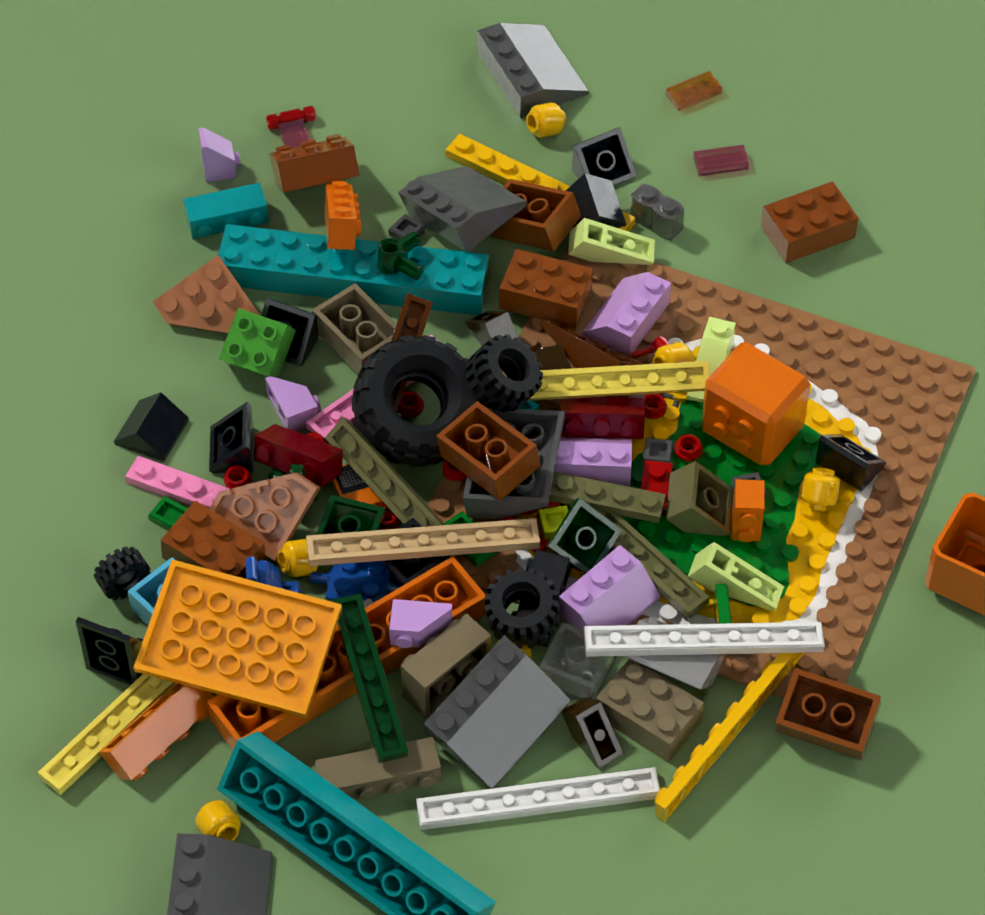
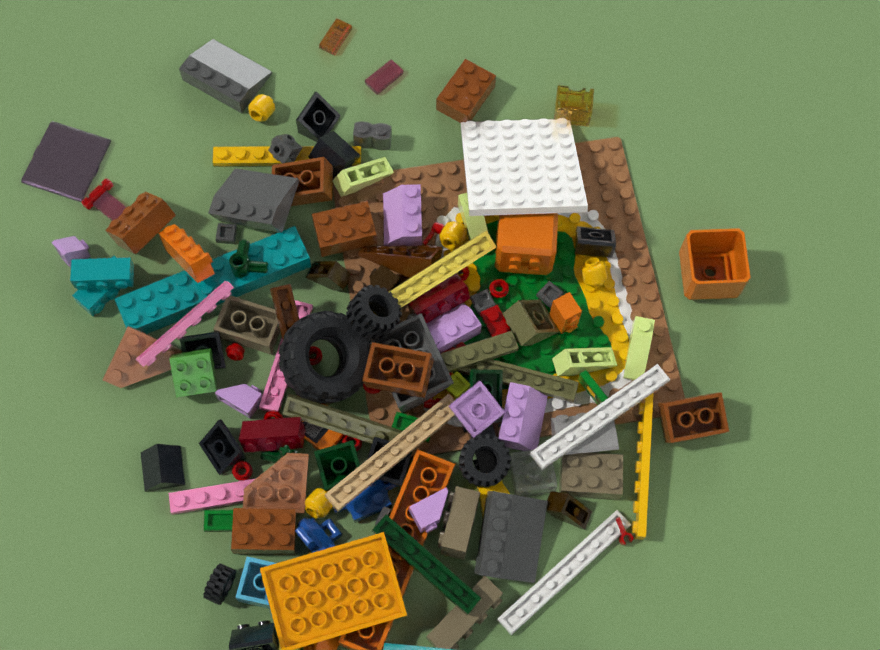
camera: 35 degrees left, 15 degrees up
(232, 189) = (102, 273): none -> teal brick
(272, 287) = (179, 329): none -> bright pink plate
(282, 69) = (66, 161): none -> clear purple piece
(322, 353) = (235, 351): none -> red plate
(538, 167) = (284, 148): none -> dark grey brick
(554, 545) = (476, 409): none -> lavender tile
(643, 793) = (623, 532): none -> red hand
(810, 322) = (522, 167): none -> white plate
(822, 595) = (638, 347): none -> yellowish green slope
(935, 301) = (573, 105): none -> clear yellow piece

